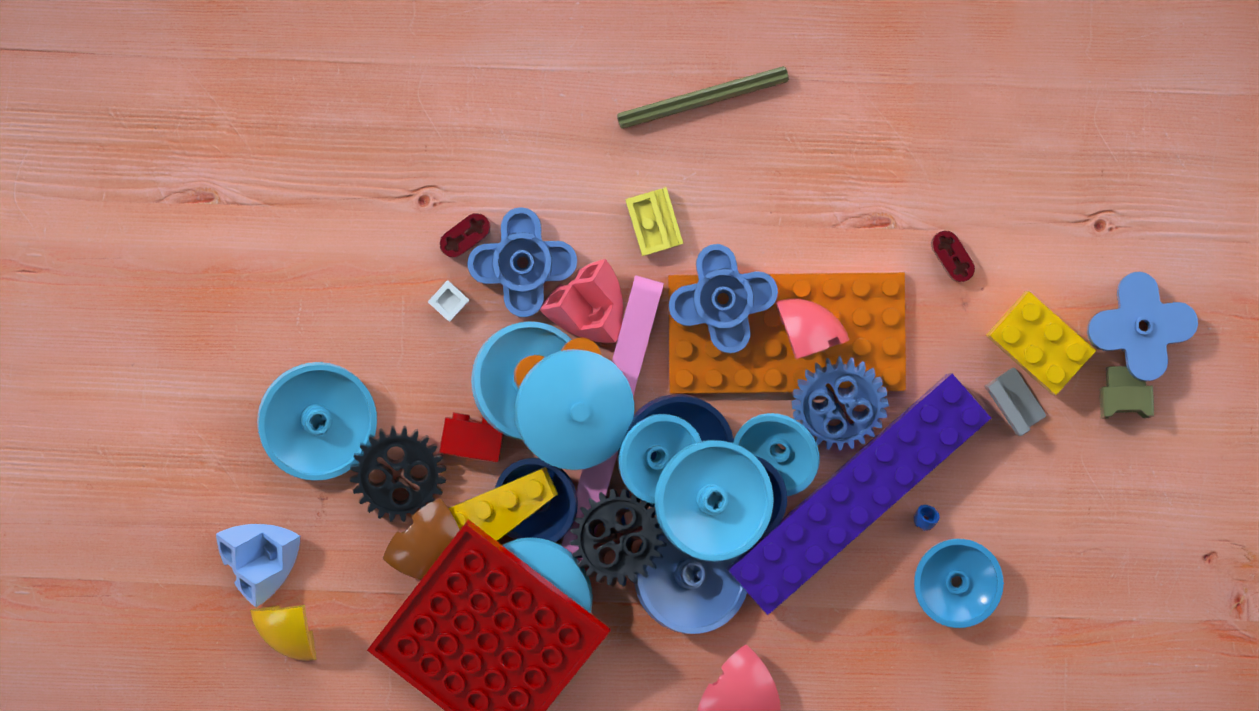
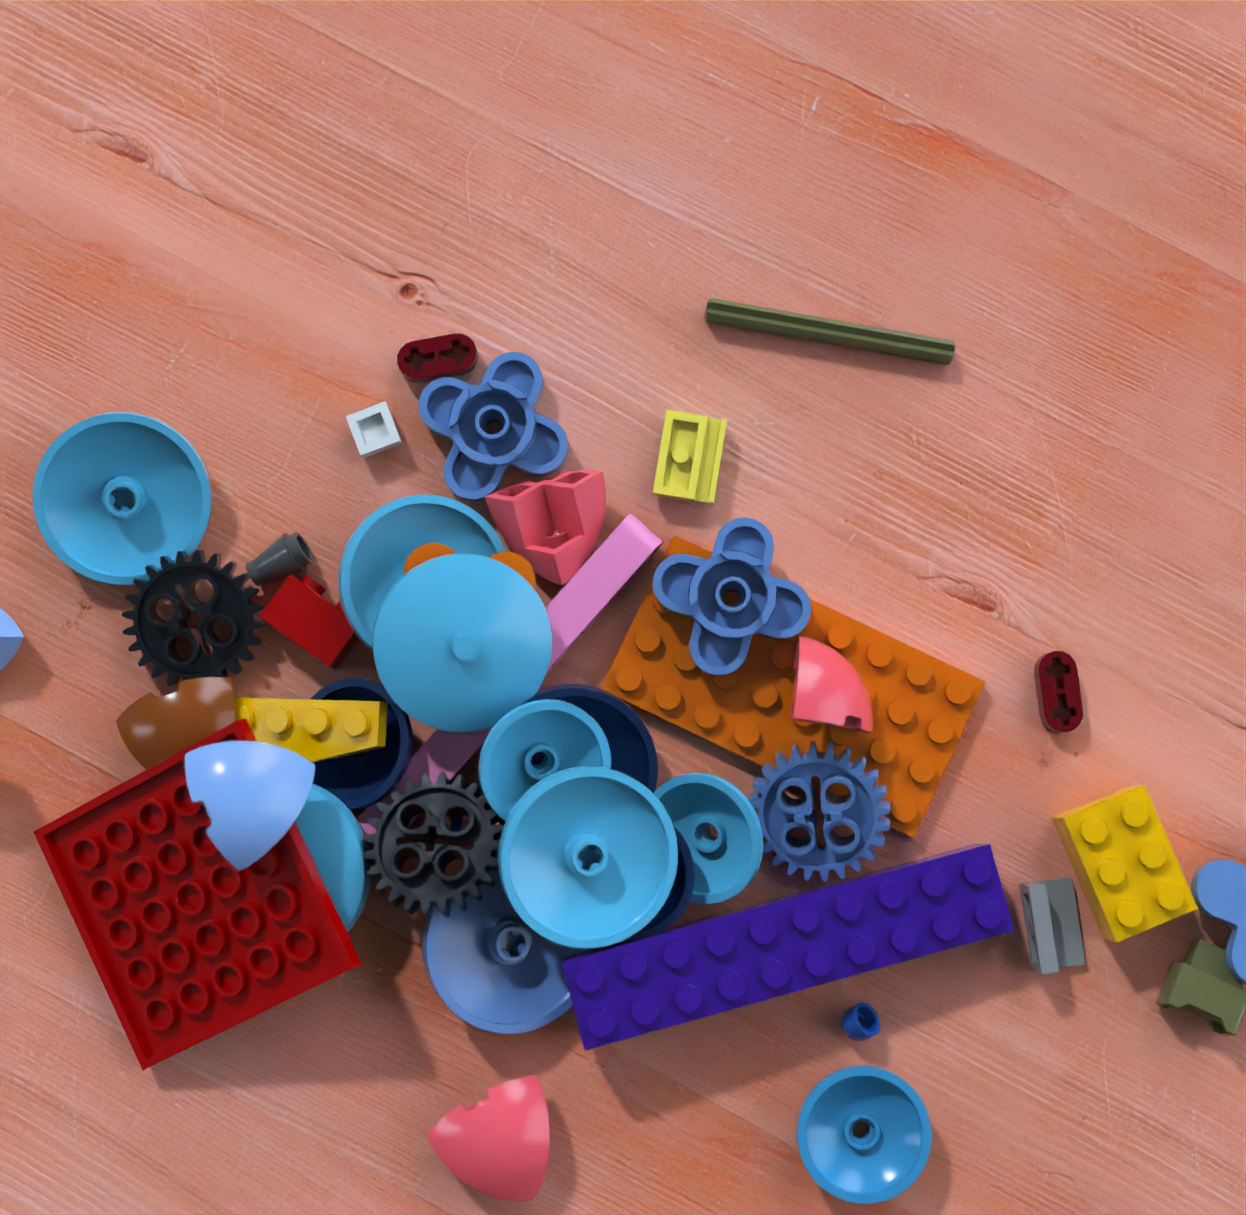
camera: 25 degrees right, 5 degrees down
(433, 408) = (284, 557): none -> dark grey cone
(496, 562) = (248, 794): none -> light blue brick

